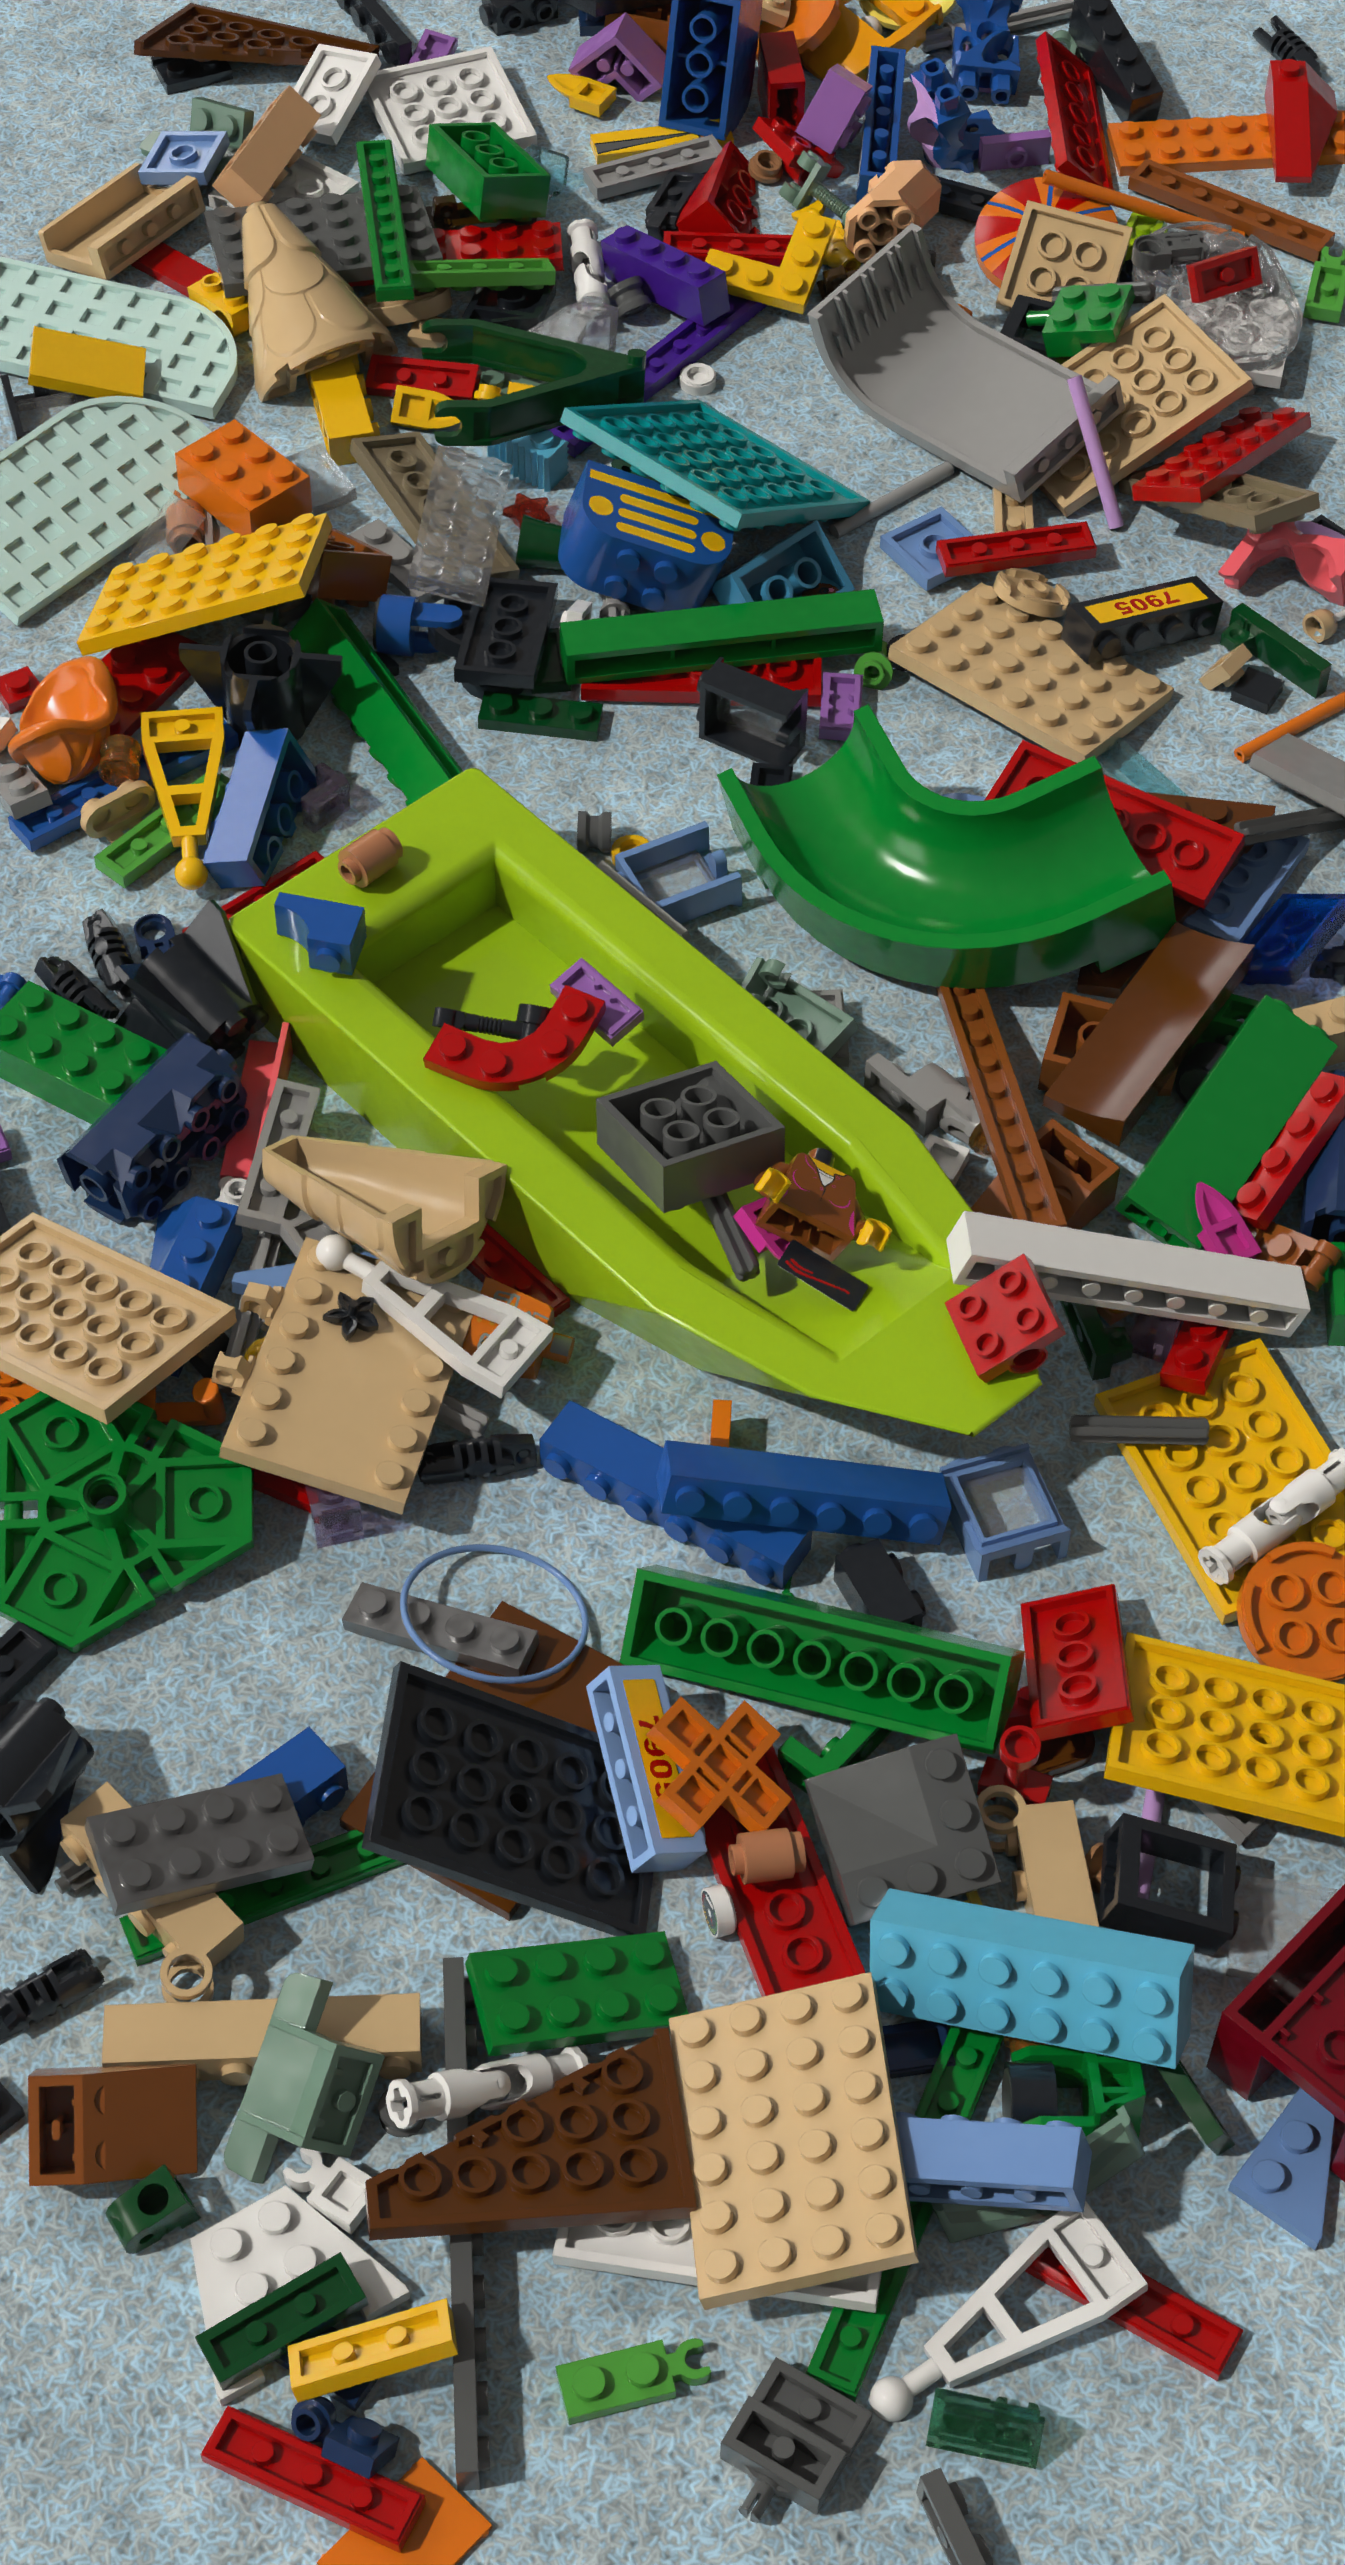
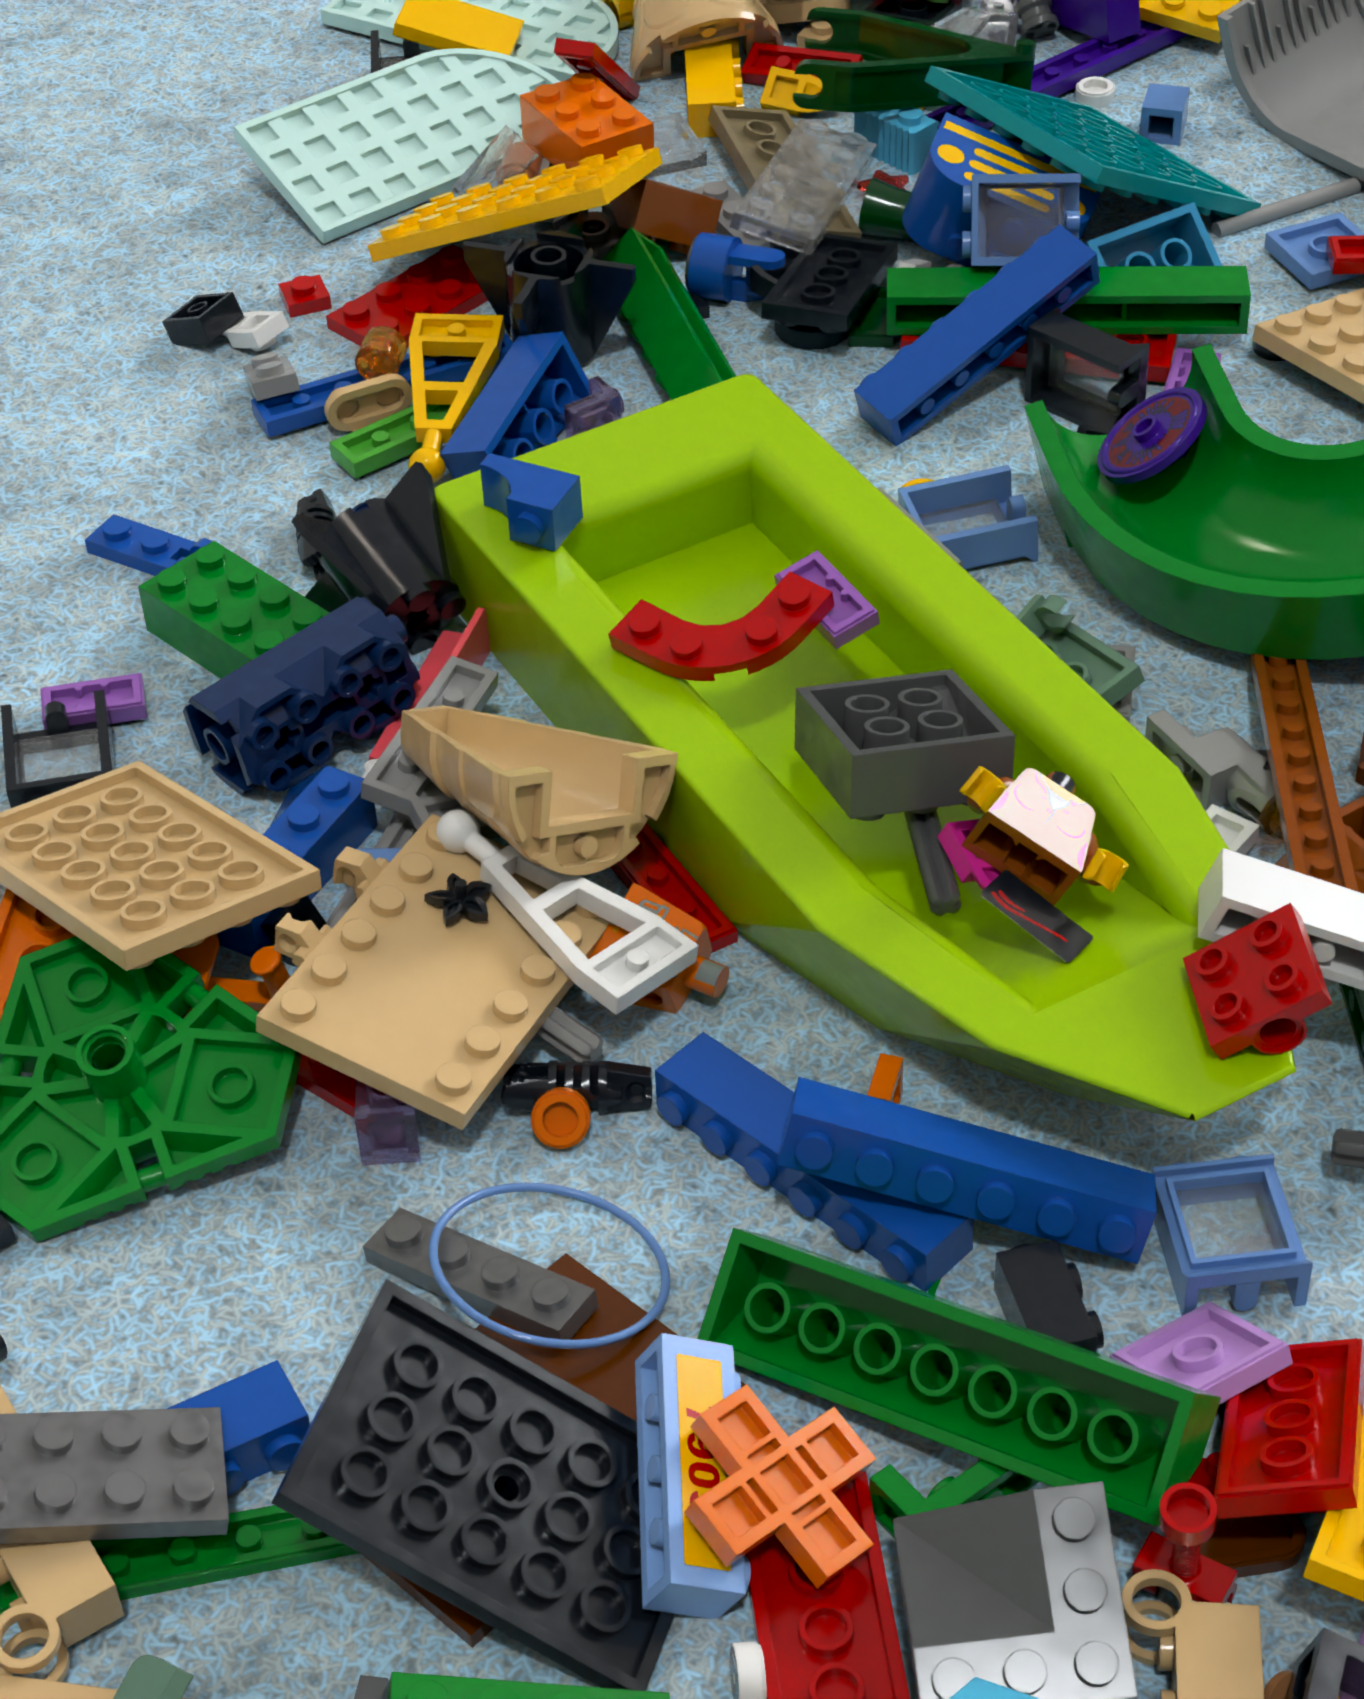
camera: 15 degrees right, 10 degrees down
(67, 721) = (334, 318): orange piece -> none
(70, 983) = (266, 554): black hinge -> none
(237, 410) = (589, 57): none -> red tile
(369, 857) = (605, 437): nougat brick -> none
(470, 1487) = (561, 1117): none -> orange tile
(528, 1020) = (741, 604): black brick -> none
(540, 716) = (833, 360): dark green plate -> none
(594, 831) = (884, 468): dark grey wheel -> none
(653, 688) = (976, 335): none -> blue brick
(675, 569) = (1014, 212): none -> clear window
(767, 404) = (1164, 113): none -> medium blue brick
(767, 1855) = (823, 1611): nougat brick -> none
(829, 791) = (1152, 435): none -> dark purple shield
(875, 668) = (1237, 351): bright green plate -> none
(1002, 1611) = (1209, 1352): none -> lavender tile

